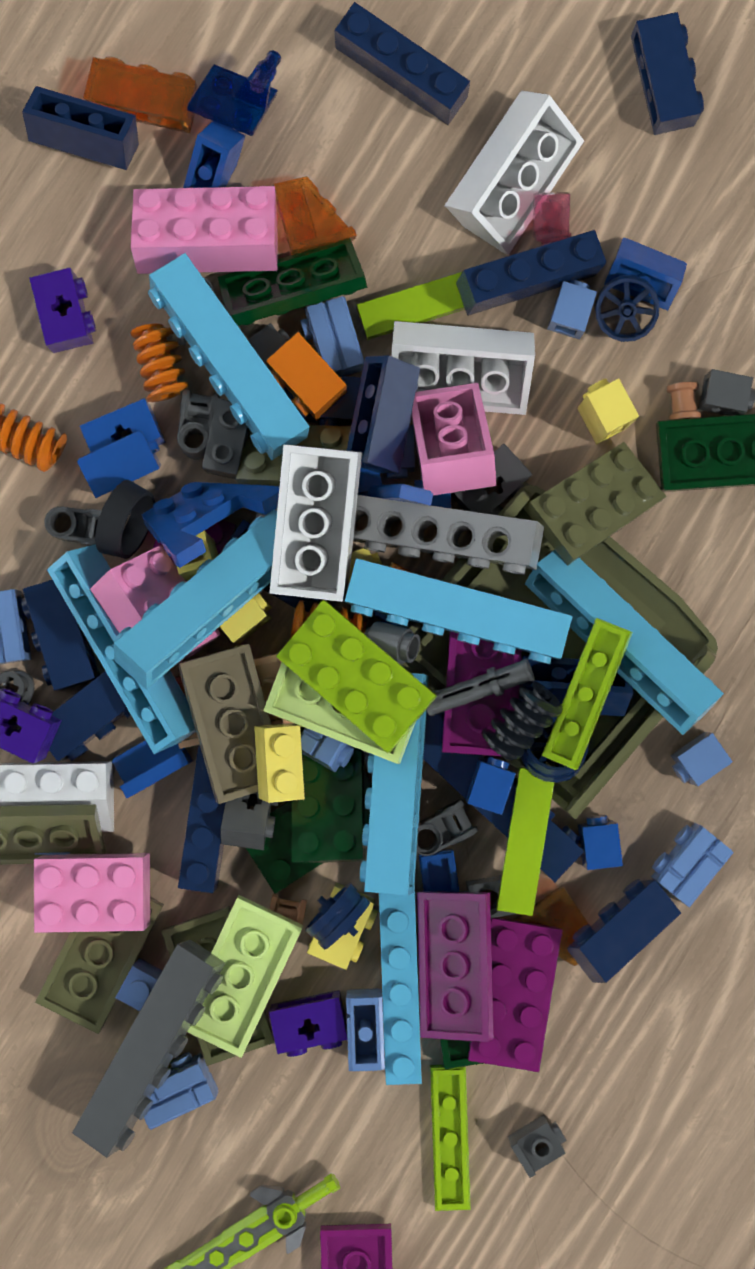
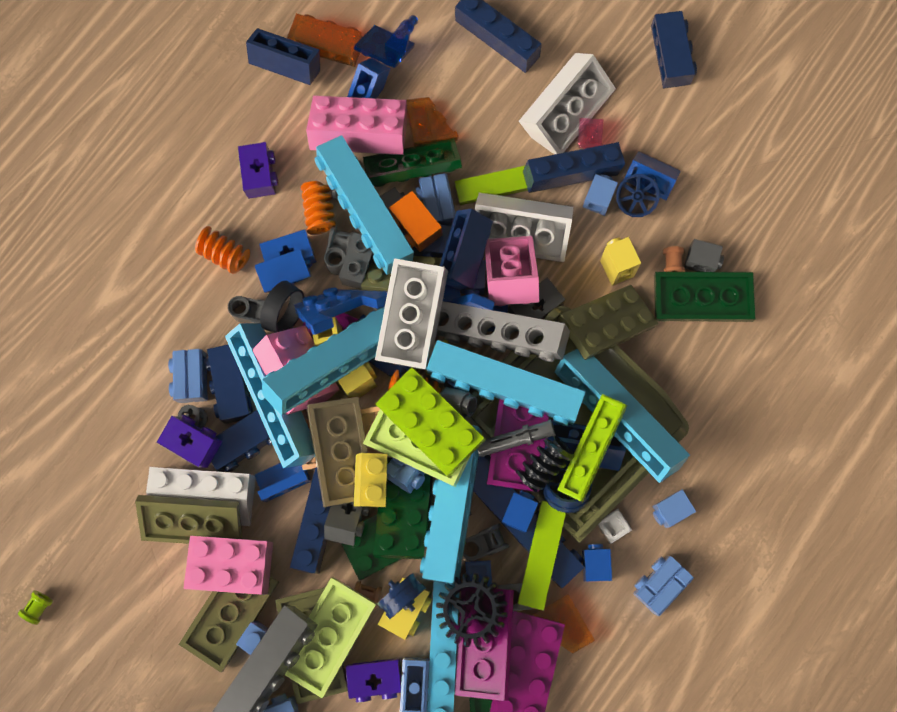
camera: 15 degrees right, 10 degrees down
(452, 933) = (451, 599): none -> black gear
(622, 789) = (614, 526): none -> white tile
(622, 930) = (609, 628): dark blue brick -> none

